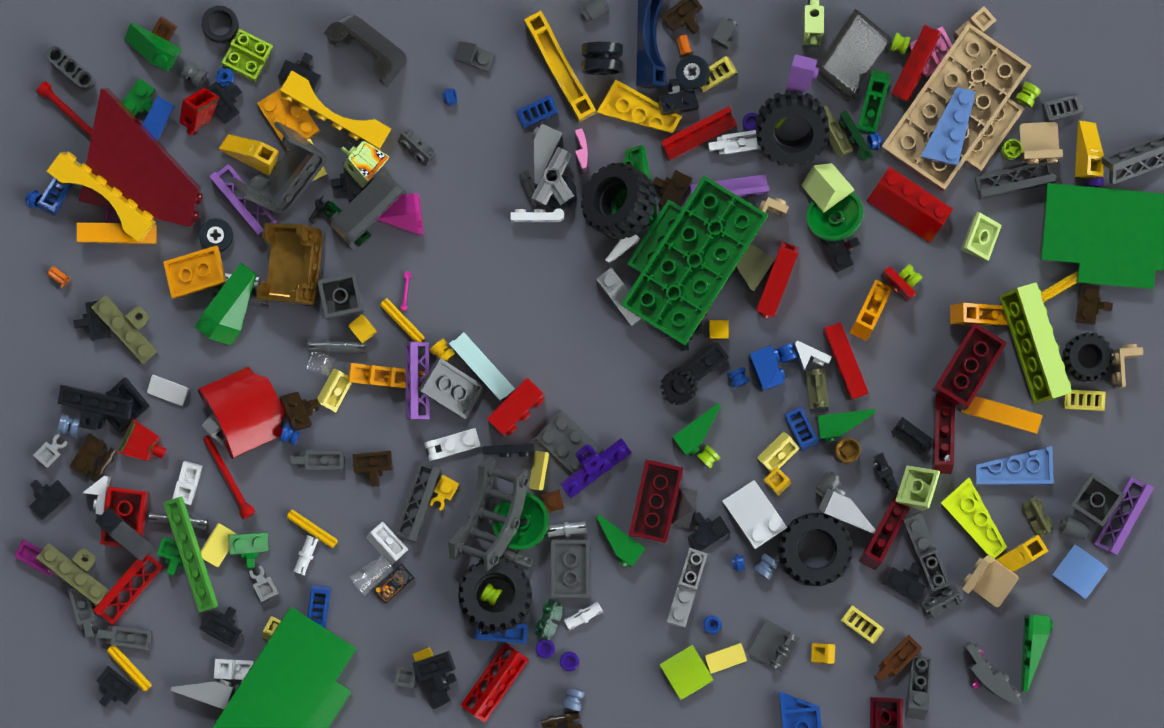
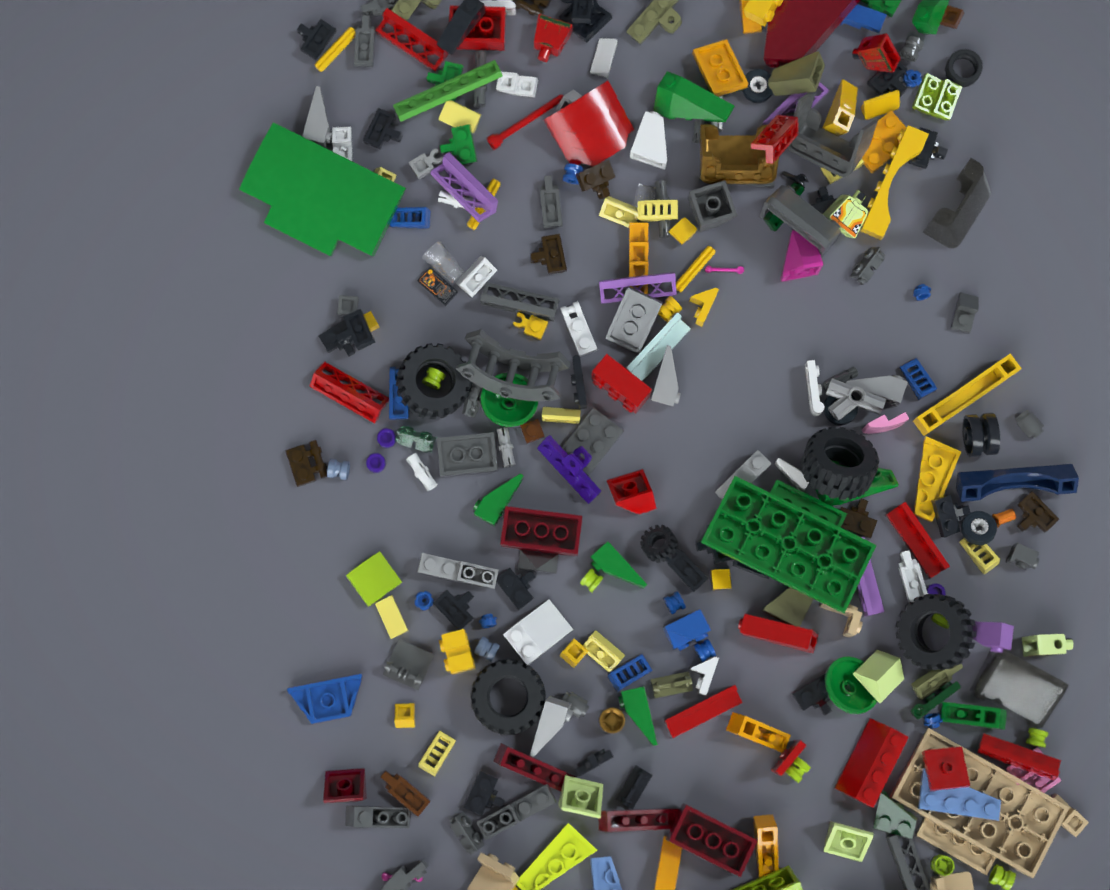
camera: 85 degrees right, 5 degrees down
(214, 194) = (797, 76): none -> olive slope
(250, 113) = (881, 105): none -> yellow slope
(264, 351) = (650, 141): none -> white slope
(284, 219) = (776, 137): none -> red fence
(291, 541) = (472, 187): none -> medium lavender fence
(339, 368) = (657, 204): none -> light yellow slope
(437, 312) = (705, 300): none -> yellow slope
(520, 362) = (667, 386): none -> light grey slope
(624, 407) = (632, 492): none -> red slope
(723, 594) = (455, 608): none -> black hinge
(767, 594) = (458, 652): none -> yellow brick
(922, 135) = (946, 768): none -> red plate
(964, 189) = (894, 818): none -> wing

